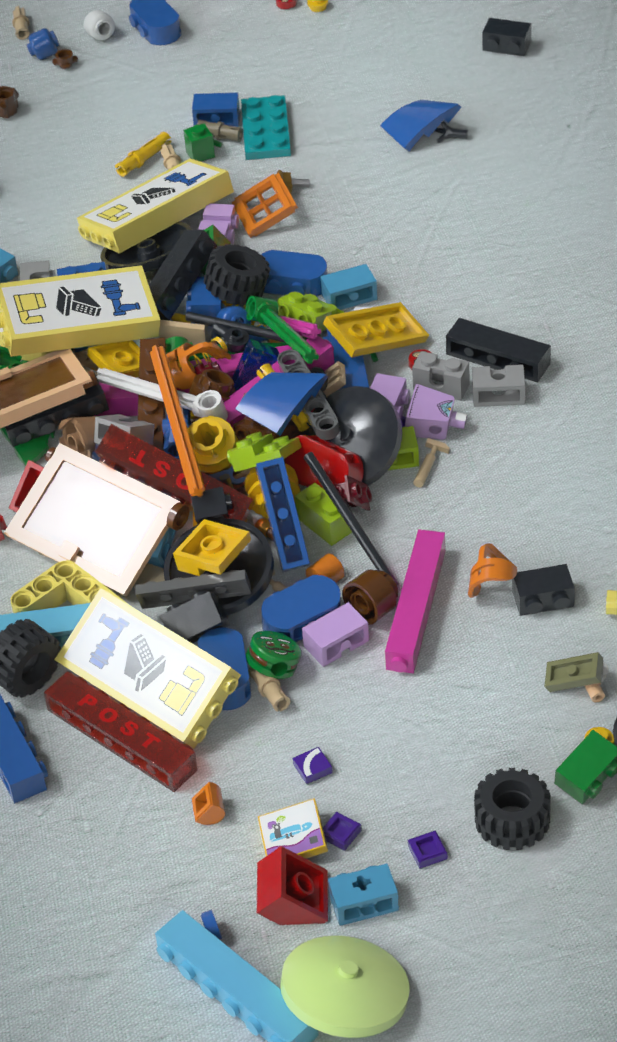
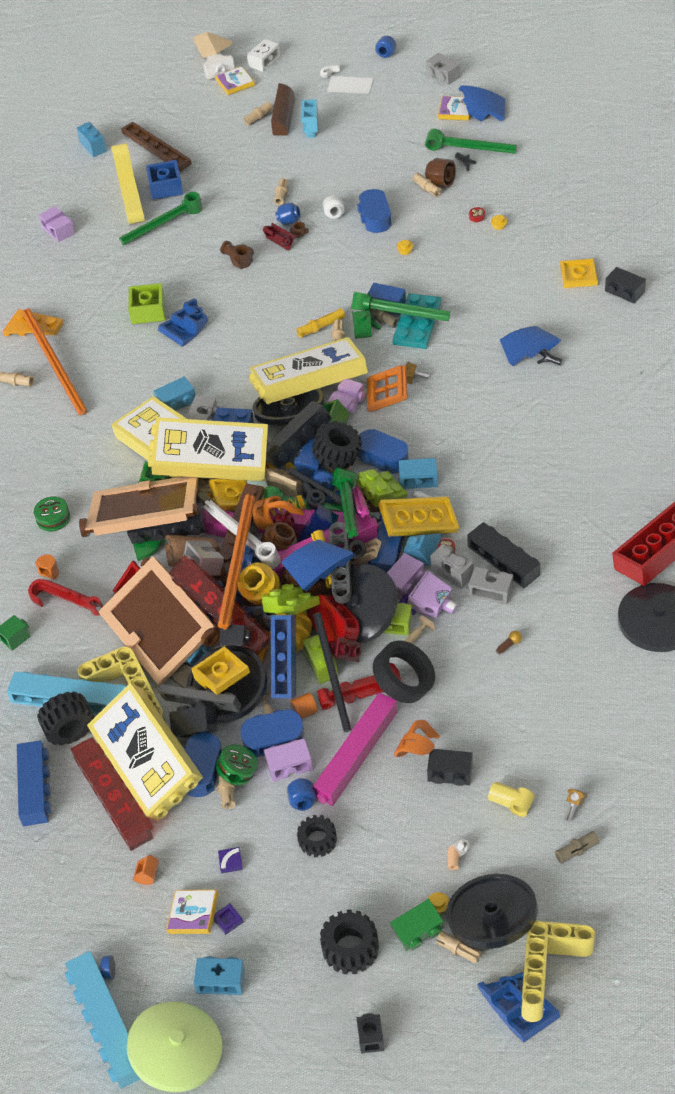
camera: 20 degrees right, 5 degrees up
(43, 70) = (279, 236): none -> dark red hinge
(192, 114) = (365, 302): none -> green piece
(211, 51) = (405, 247): none -> yellow plate
(291, 889) = (173, 956): red slope -> none
(371, 594) = (324, 736): reddish brown piece -> none
(371, 666) = (301, 794): none -> blue head
(393, 532) = (360, 688): none -> red piece
(395, 362) = (422, 547): none -> dark azure slope
(412, 721) = (312, 825): none -> black tyre
(427, 849) = (281, 953): dark purple tile -> none
(429, 509) = (416, 659): none -> black tyre
(442, 37) = (578, 273): none -> yellow tile
(553, 435) = (514, 638): none -> piece
(574, 672) = (441, 843): olive plate -> none
(589, 911) = (371, 1042): none -> black brick

